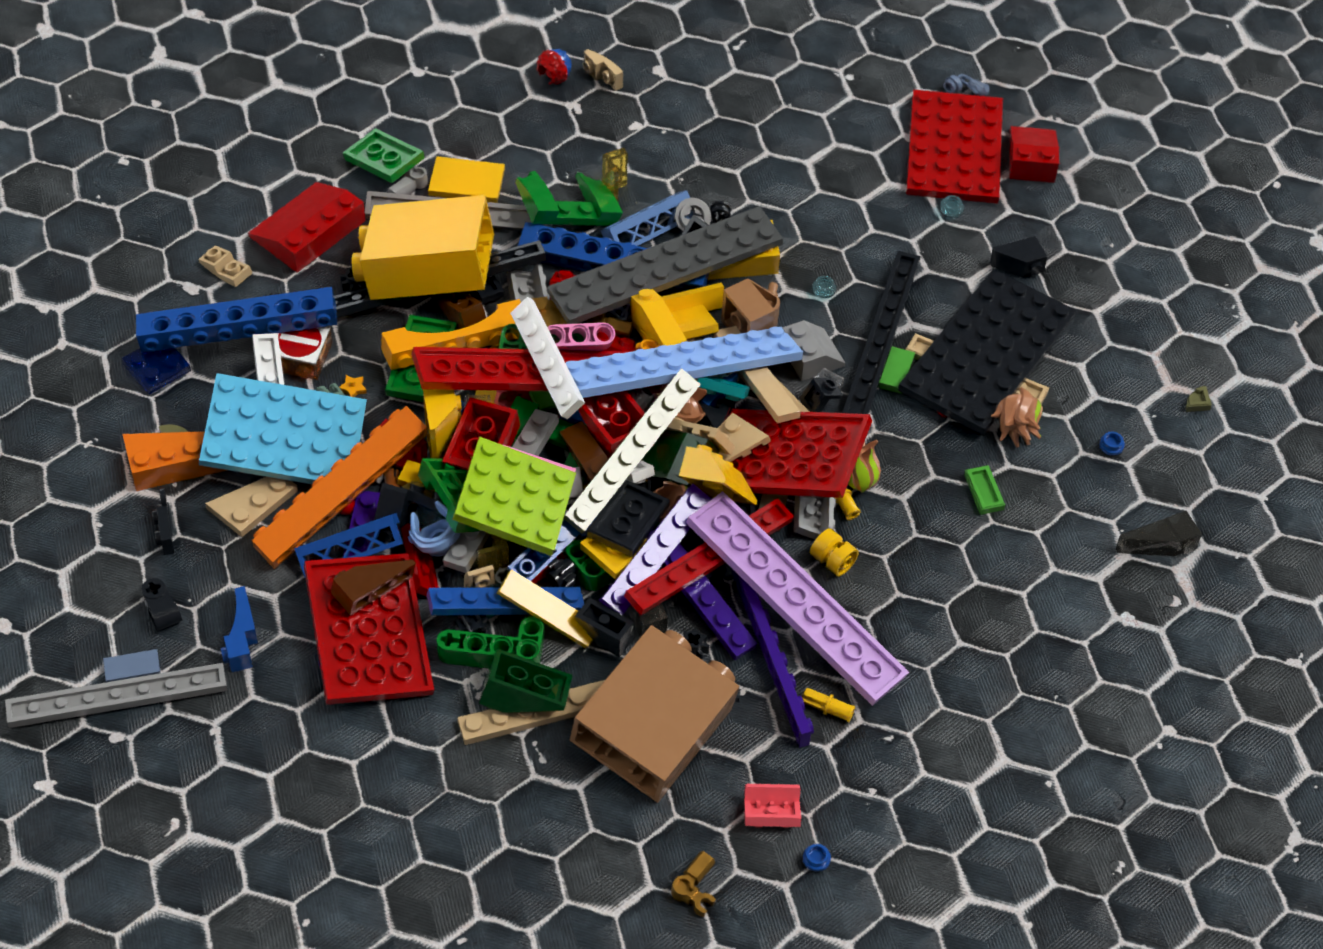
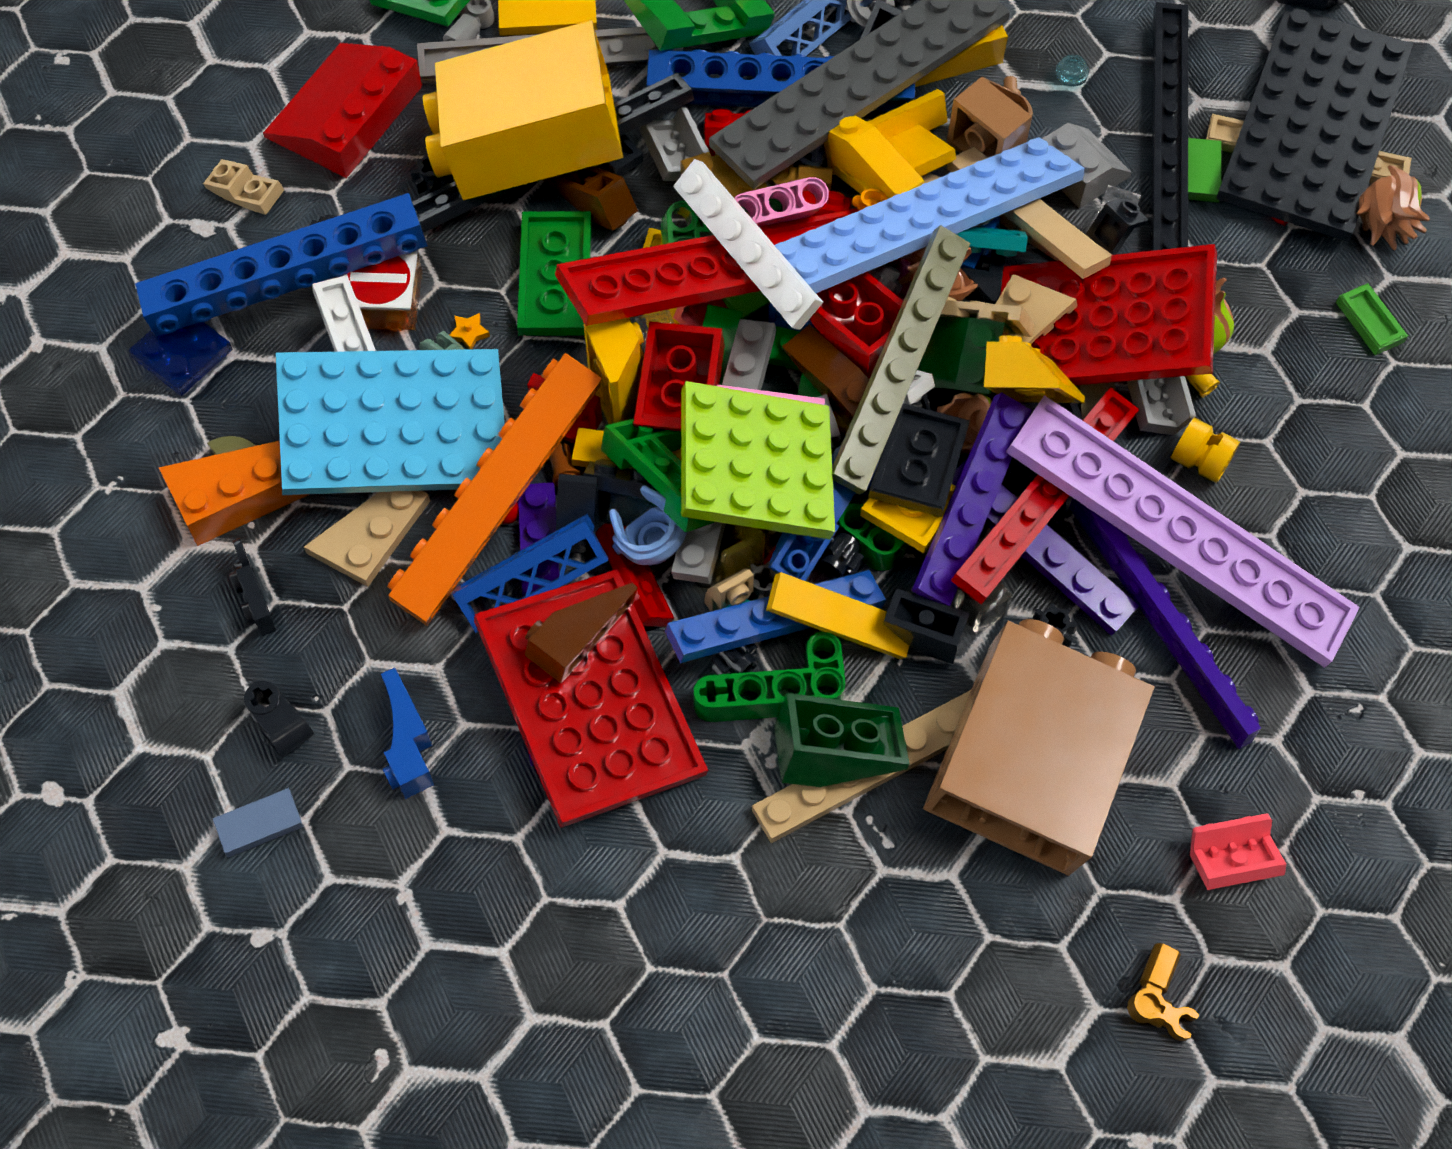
camera: 10 degrees left, 10 degrees up
(115, 695) = (243, 874): light grey plate -> none
(399, 343) = (532, 262): light orange arch -> none
(816, 857) = (1318, 916): blue plate -> none
(828, 704) = (1264, 677): yellow axle -> none

